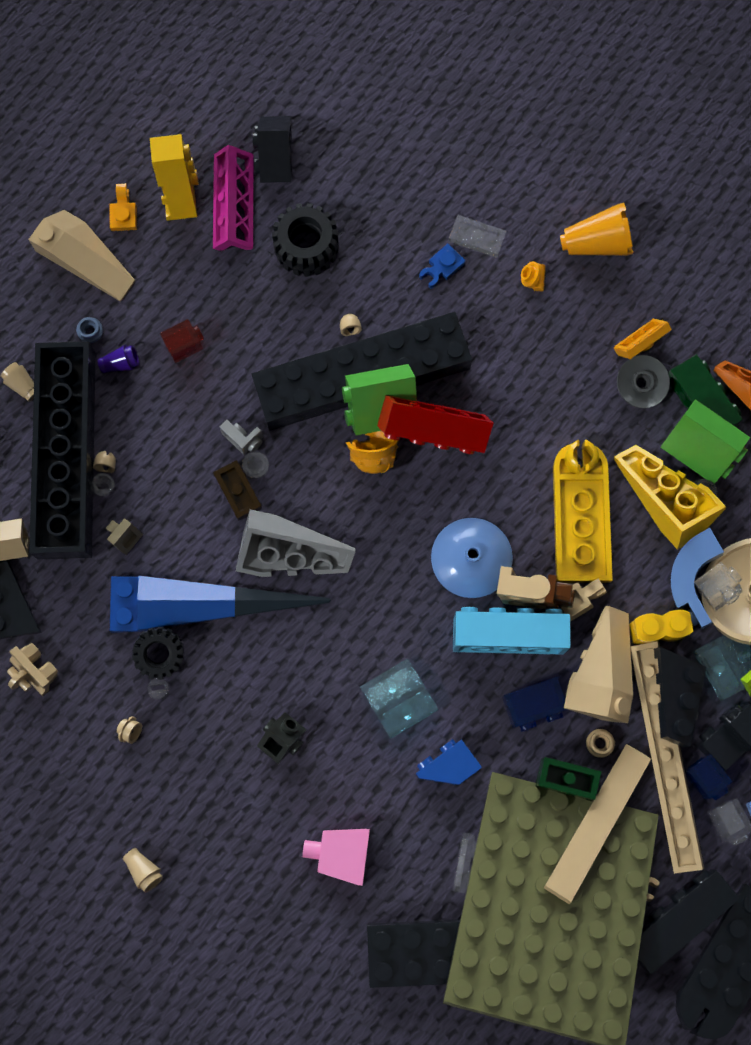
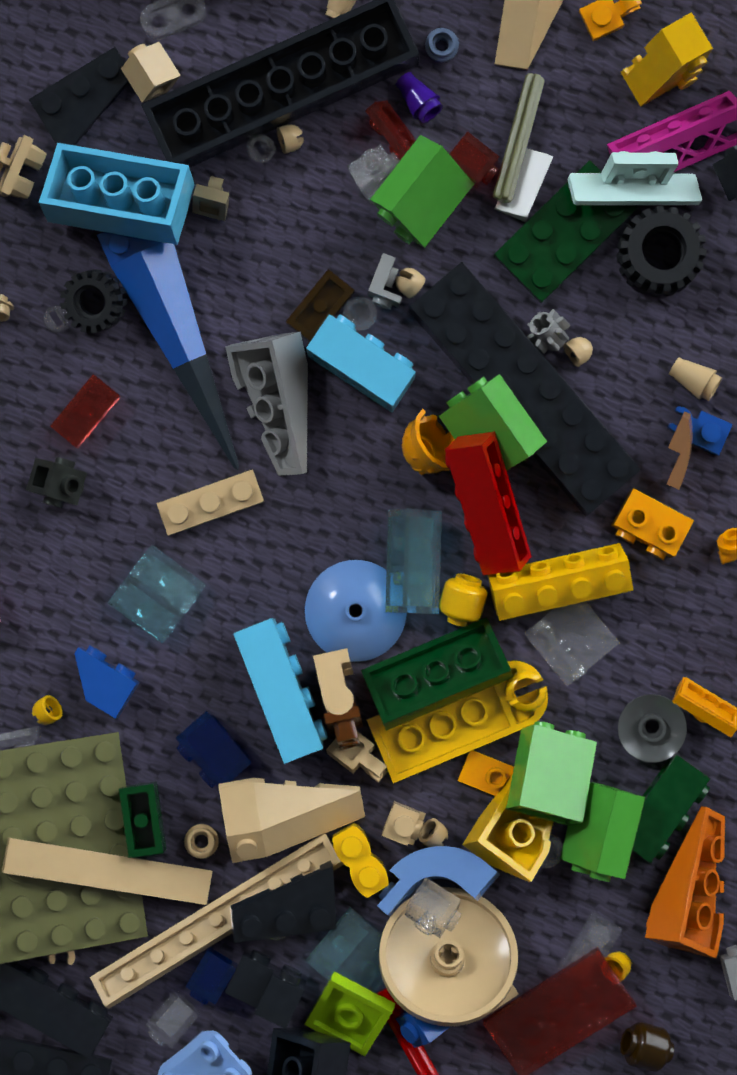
camera: 65 degrees right, 10 degrees up
(86, 599) = (117, 193): none -> medium azure brick
(125, 389) = (387, 123): none -> clear red plate
(160, 408) = (372, 170): none -> clear brick
(181, 304) = (518, 138): none -> olive axle
(187, 381) = (421, 192): none -> bright green brick
(214, 313) = (529, 182): none -> white slope
(237, 695) = (85, 411): none -> clear red plate
(248, 234) = (636, 181): none -> light aqua bracket
(248, 419) = (409, 282): none -> tan hinge
(261, 301) = (559, 239): none -> dark green plate
(293, 473) = (361, 361): none -> medium azure brick
(327, 337) = (548, 331): none -> light grey gear
(346, 630) = (210, 502): none -> tan plate
(404, 254) = (696, 378): none -> tan cone
(445, 277) = (681, 443): none -> medium nougat slope
(453, 824) = (41, 713): none -> yellow hinge
(454, 498) = (413, 561): none -> clear light blue brick
(496, 323) = (652, 524): none -> light orange brick
(496, 475) = (463, 599): none -> yellow head
(512, 400) = (561, 581): none -> yellow brick
(543, 515) = (437, 673): none -> dark green plate
(555, 413) = (571, 640): none -> clear hinge
(630, 511) = (485, 772): none -> light orange plate
(645, 586) = (403, 824): none -> tan brick
(651, 461) = (552, 774): none -> brick
(660, 562) = (438, 836): none -> tan hinge

